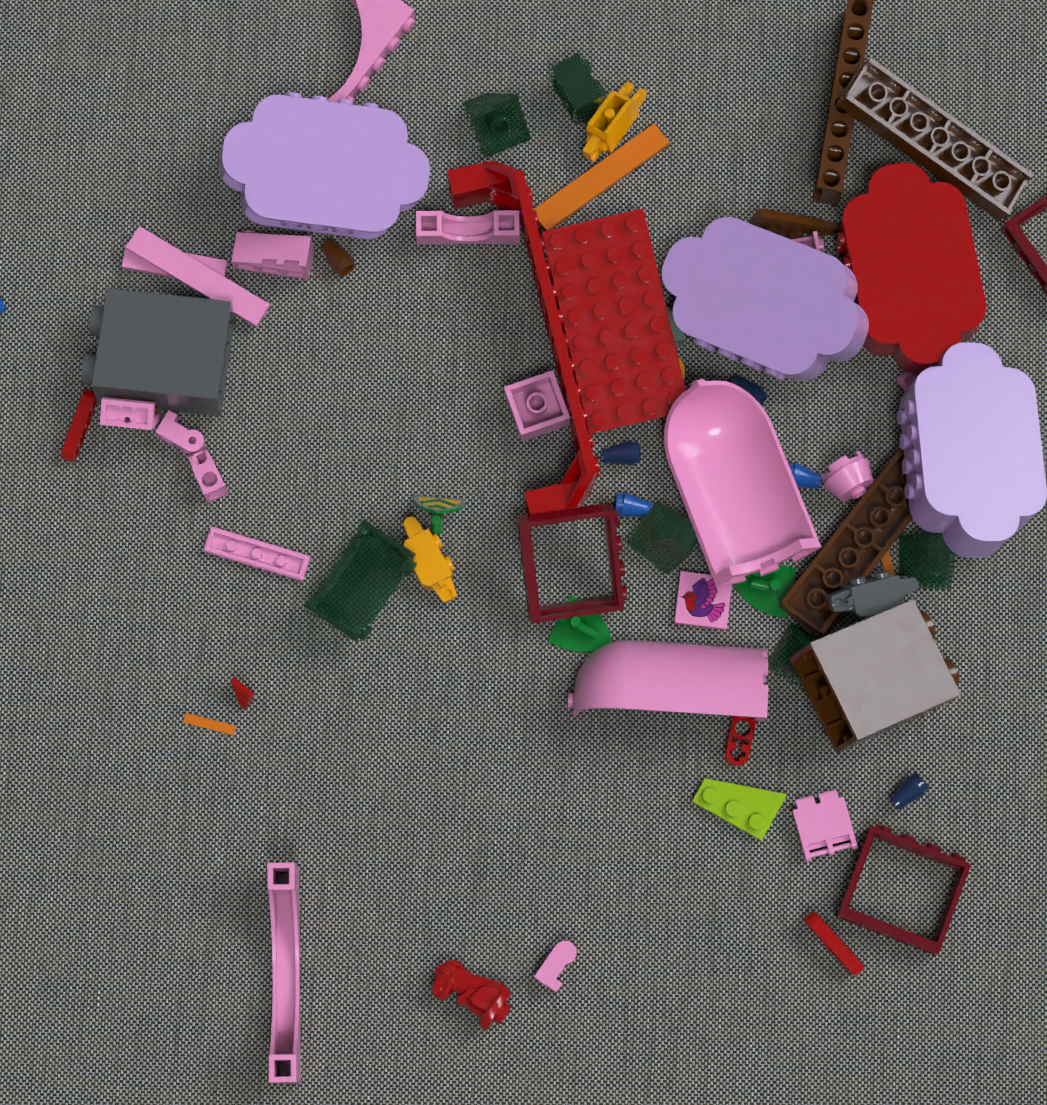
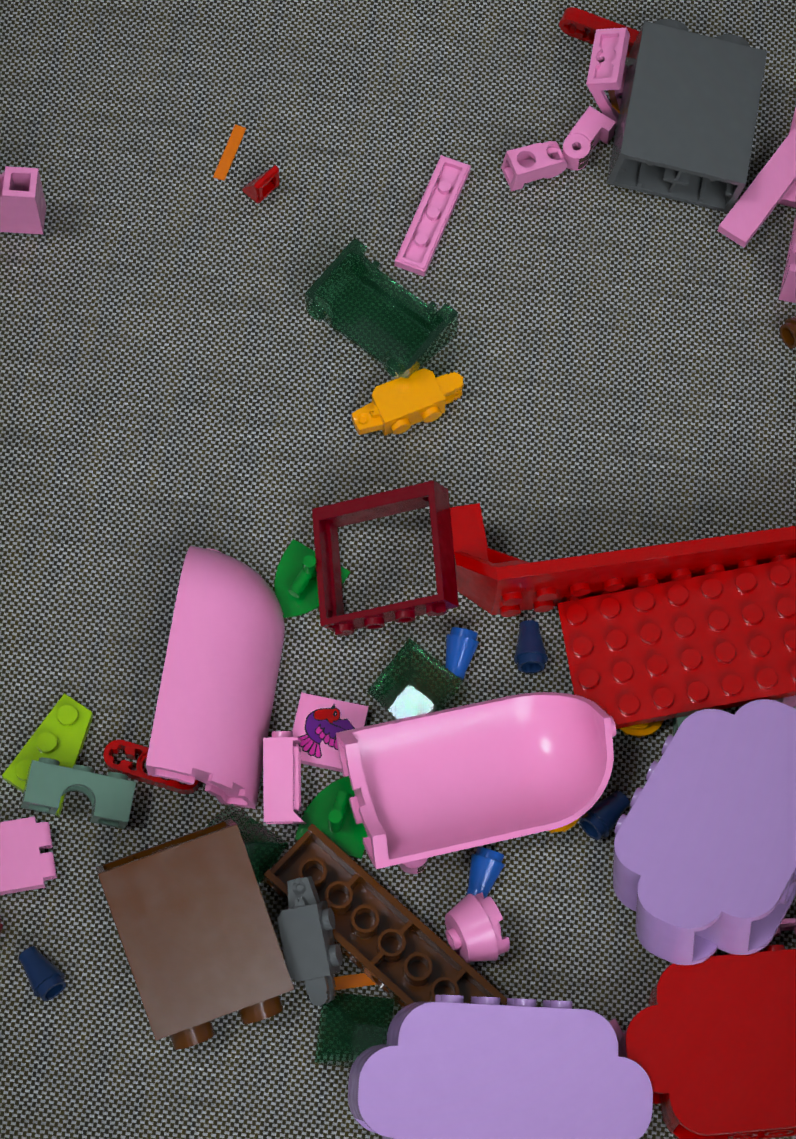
camera: 90 degrees right, 10 degrees down
(438, 506) = (474, 413): shield -> none
(537, 405) = (595, 529): bright pink brick -> none
(747, 627) = (282, 778): none -> bright pink window
(771, 800) = (109, 795): none -> sand green arch

